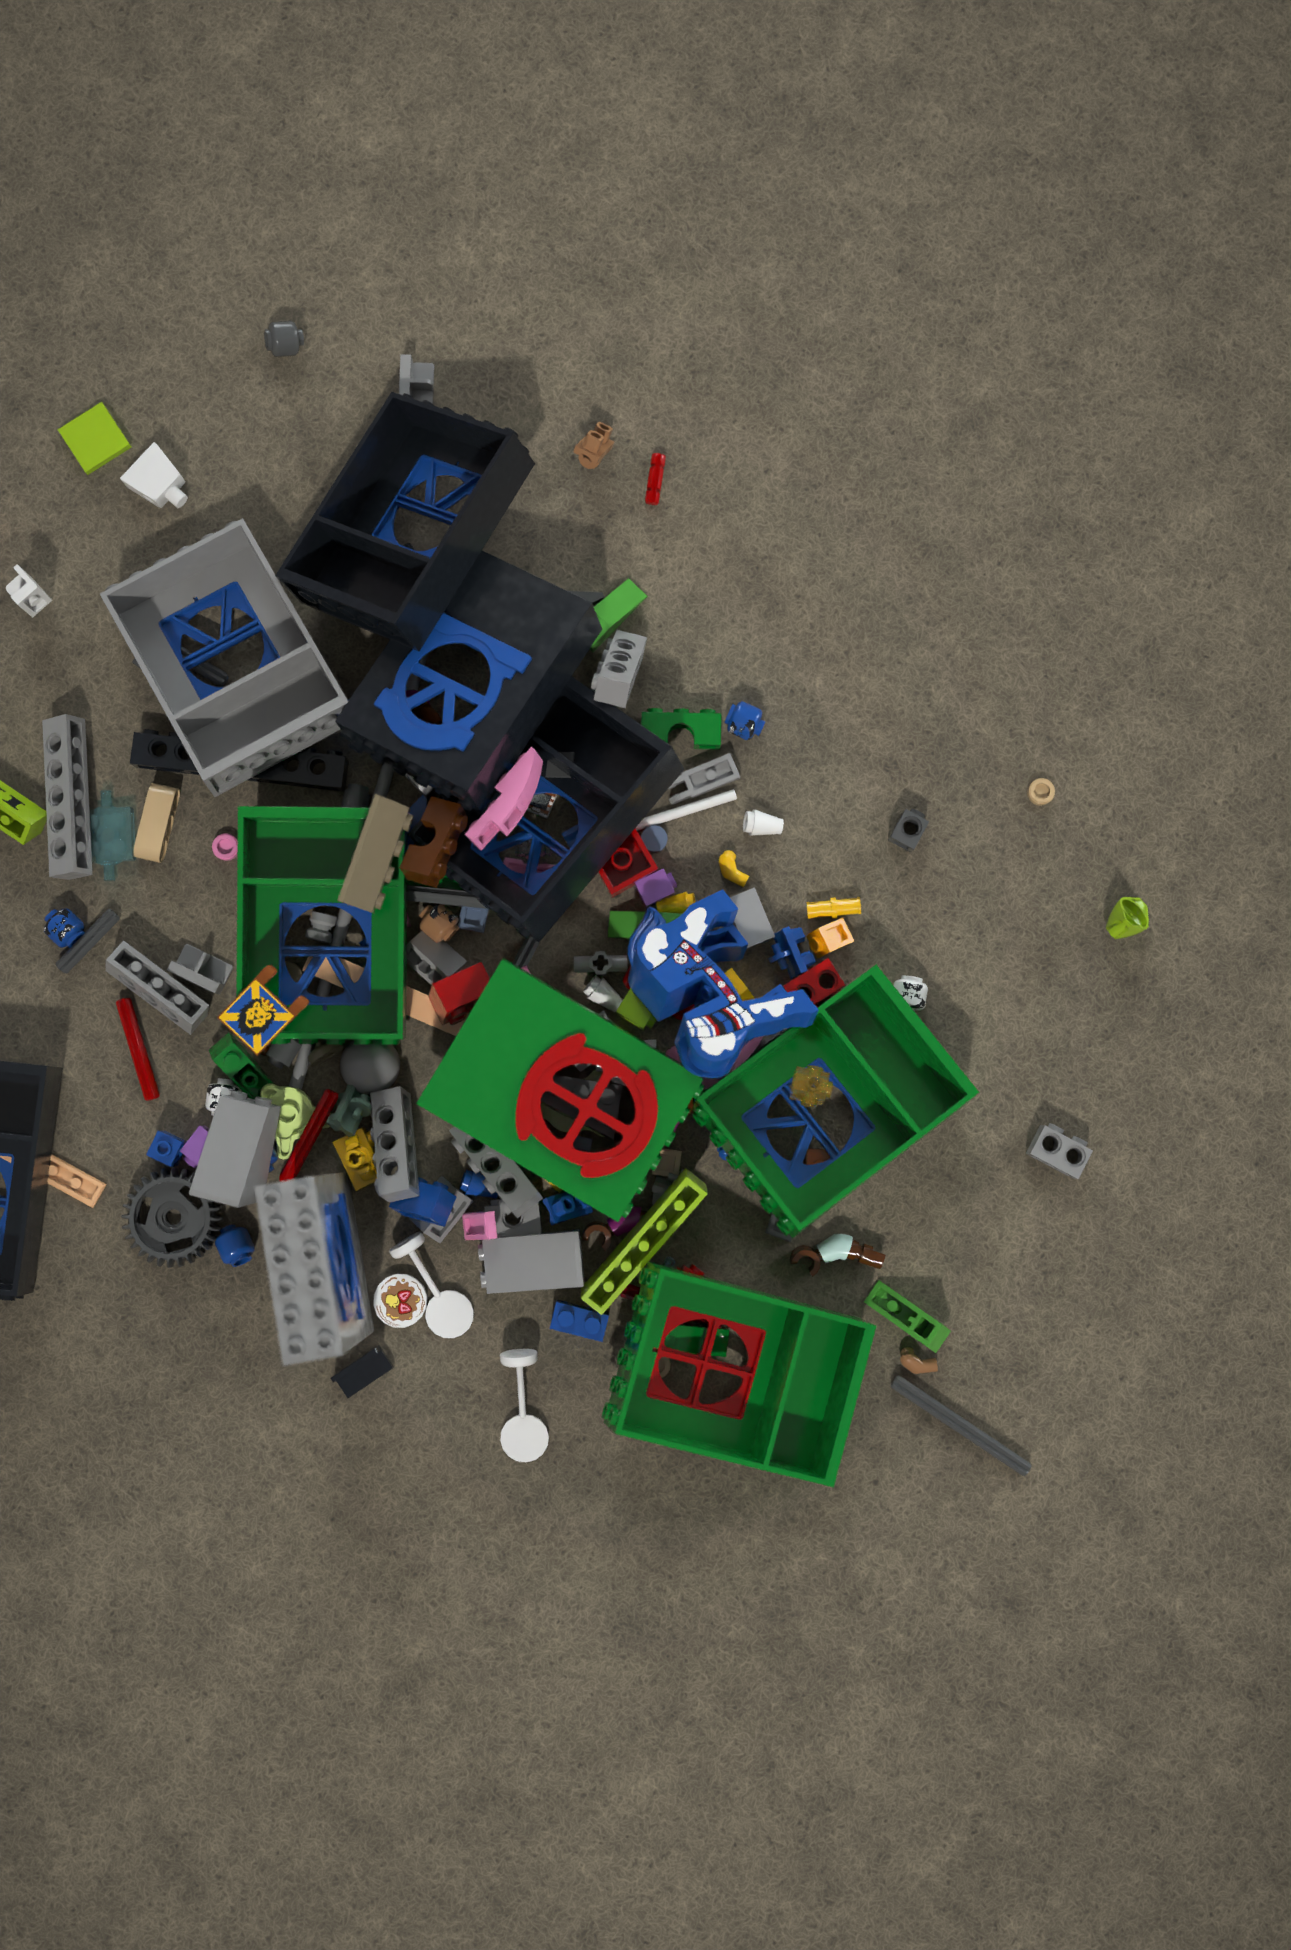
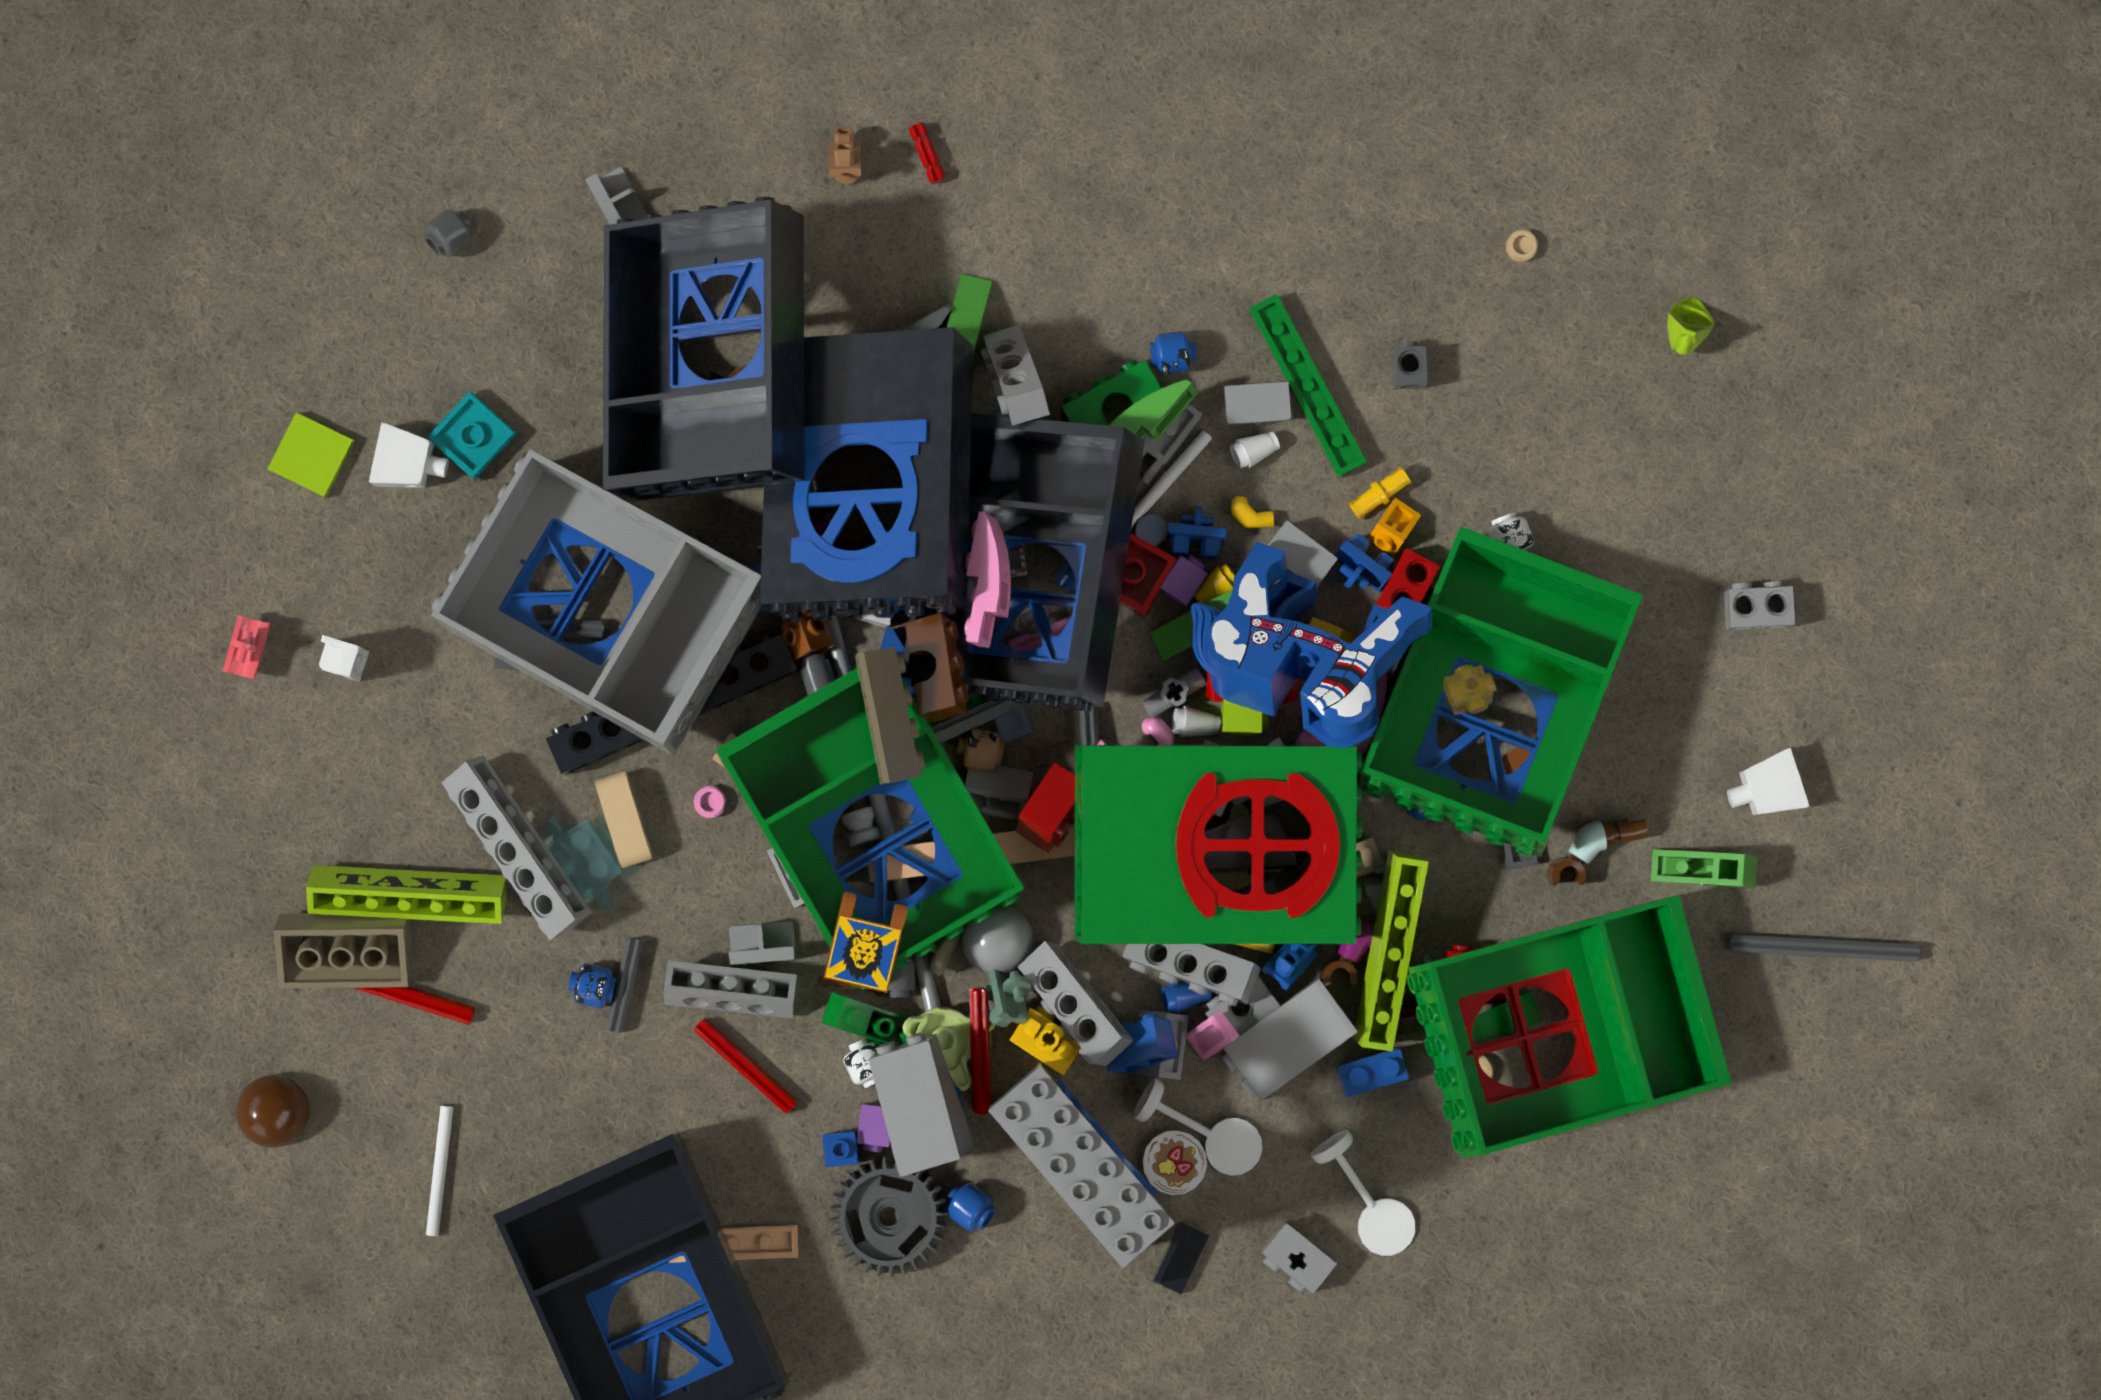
camera: 30 degrees left, 0 degrees up
(214, 490) = (472, 435): none -> teal plate
(362, 770) = (807, 637): none -> dark orange brick
(457, 1435) = (1289, 1241): none -> light grey brick
(574, 985) = (1158, 730): none -> bright pink arm
(674, 854) = (1209, 537): none -> blue hips
(708, 754) = (1157, 410): none -> bright green slope
(783, 791) = (1257, 403): none -> light grey panel
(827, 801) = (1307, 385): none -> green plate
(915, 1364) = (1741, 913): medium nougat arm -> none
(991, 1285) = (1770, 786): none -> white torso

